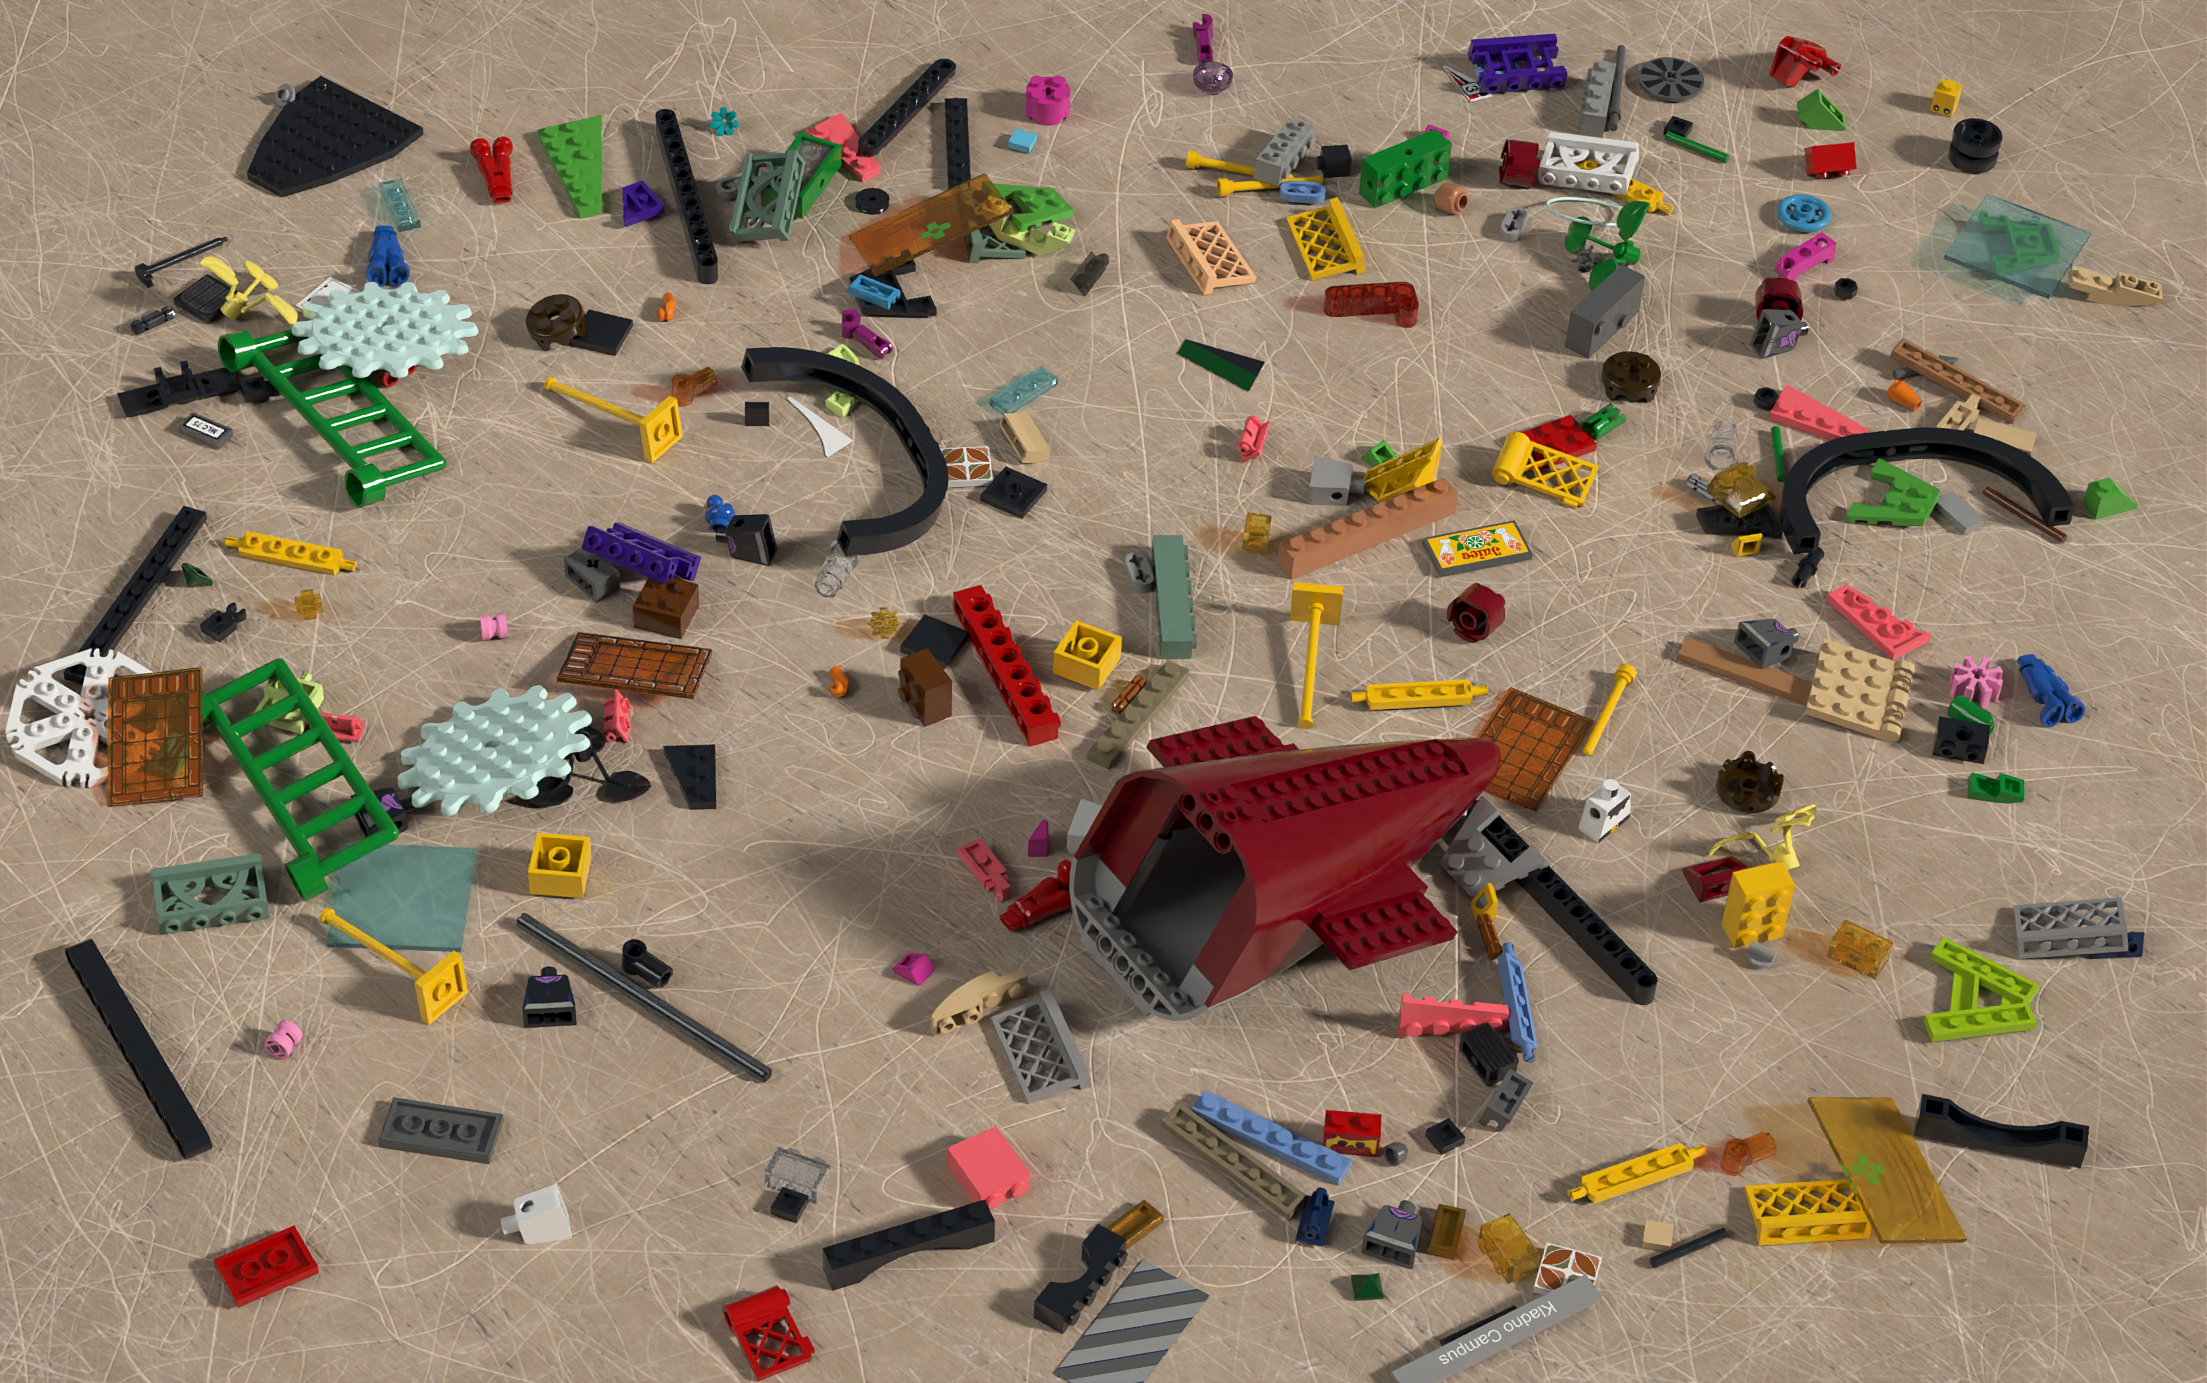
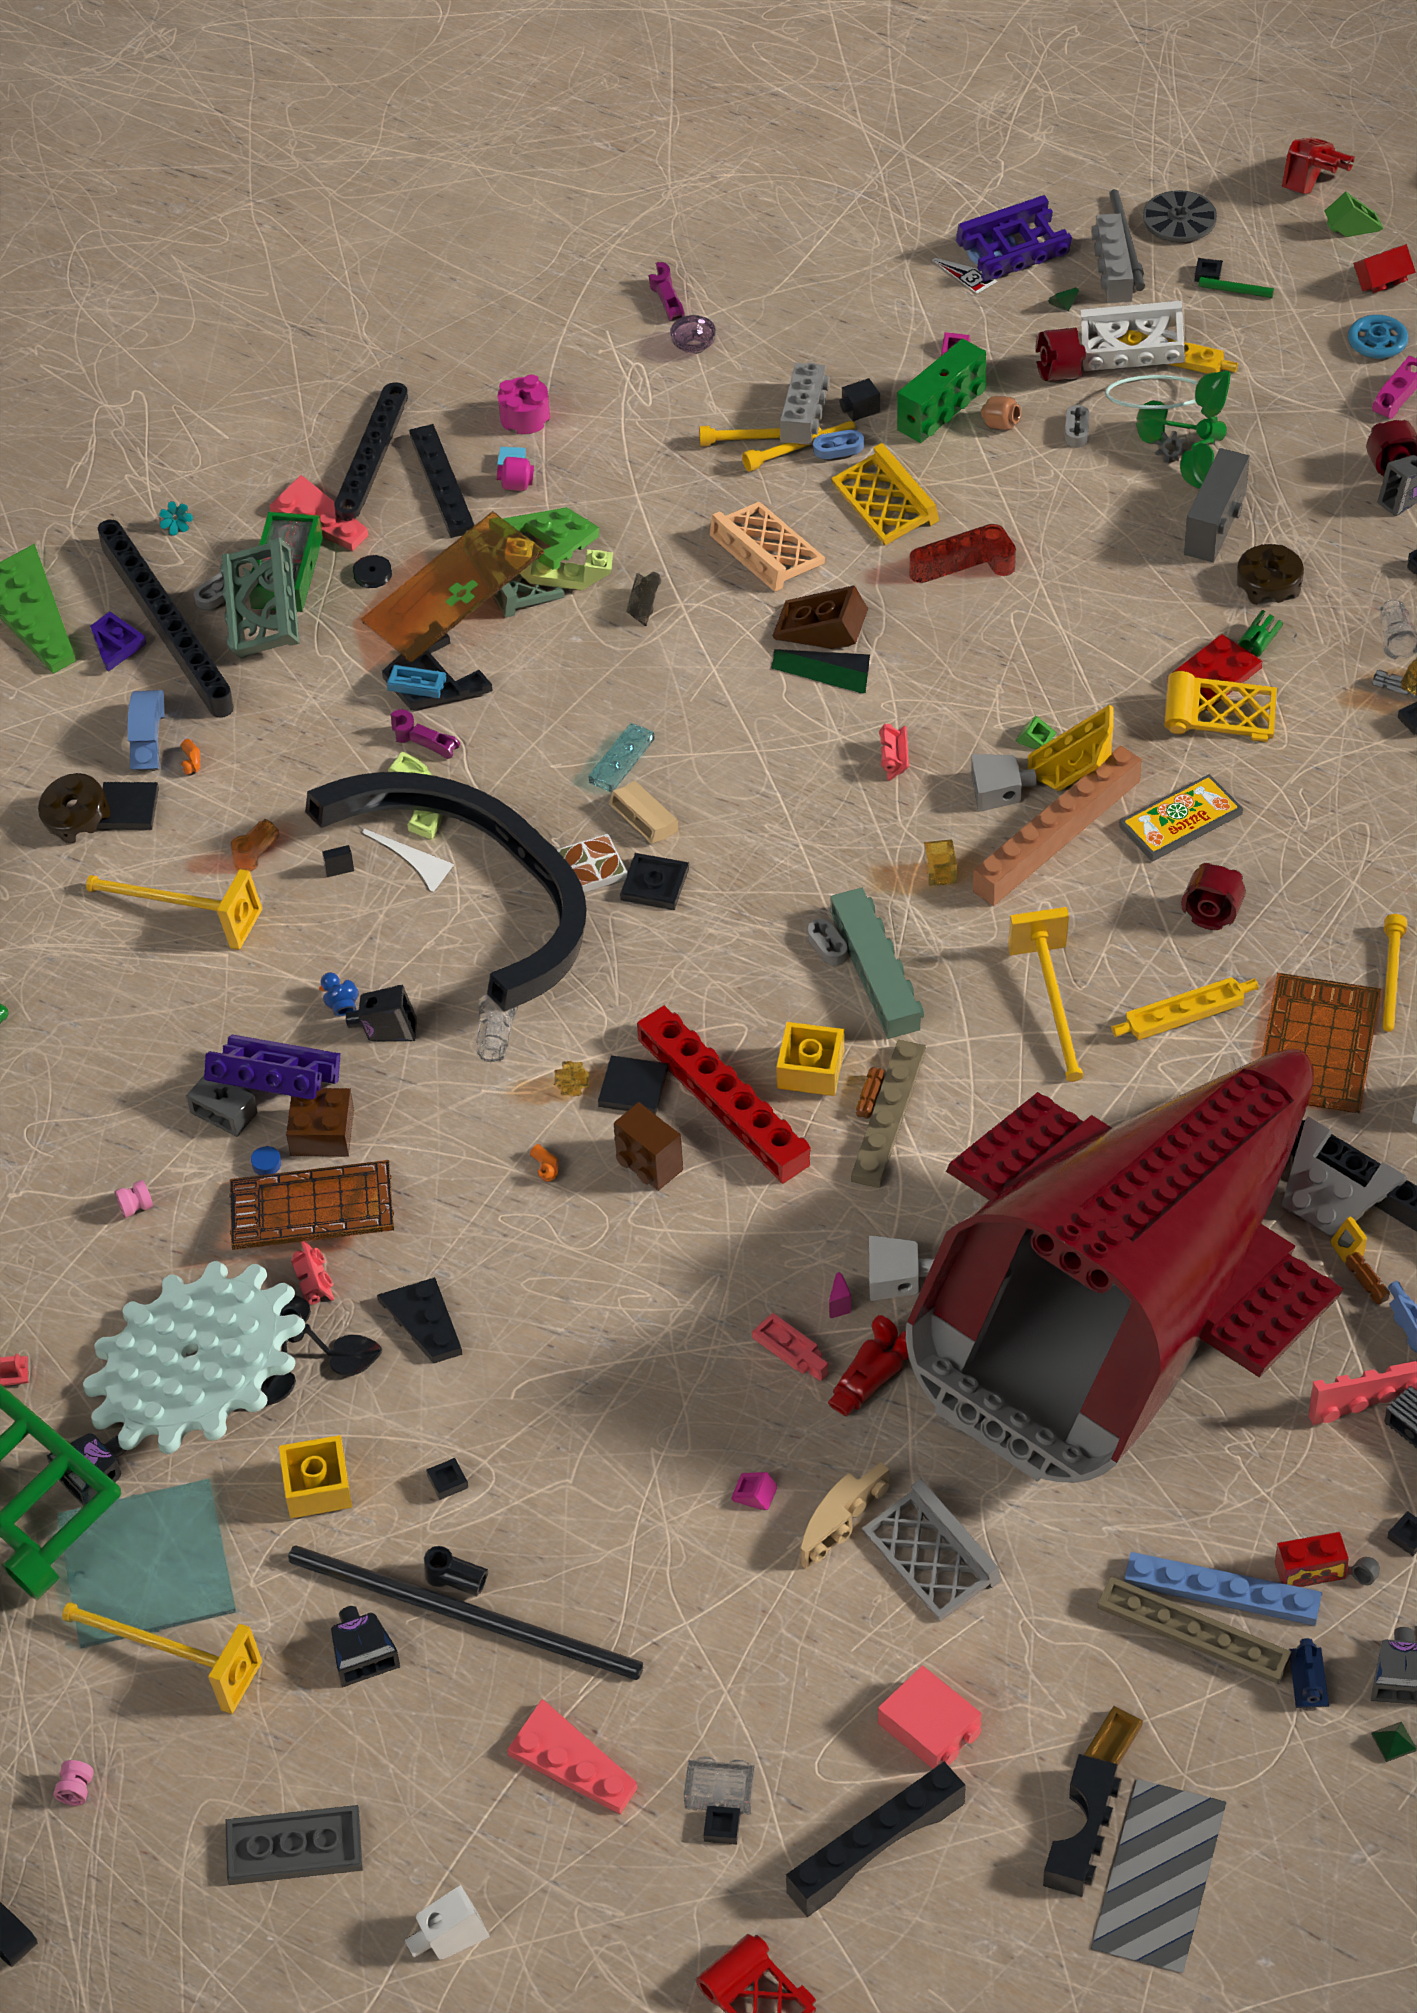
camera: 10 degrees left, 5 degrees up
(612, 625) = (266, 1160): none -> blue tile
(634, 273) = (143, 728): none -> medium blue arch
(666, 895) = (447, 1478): none -> black plate
(686, 1125) = (567, 1756): none -> coral wing
(1020, 152) = (515, 474): none -> dark pink head
(1235, 324) = (823, 619): none -> reddish brown slope
(1543, 122) = (1064, 299): none -> dark green slope

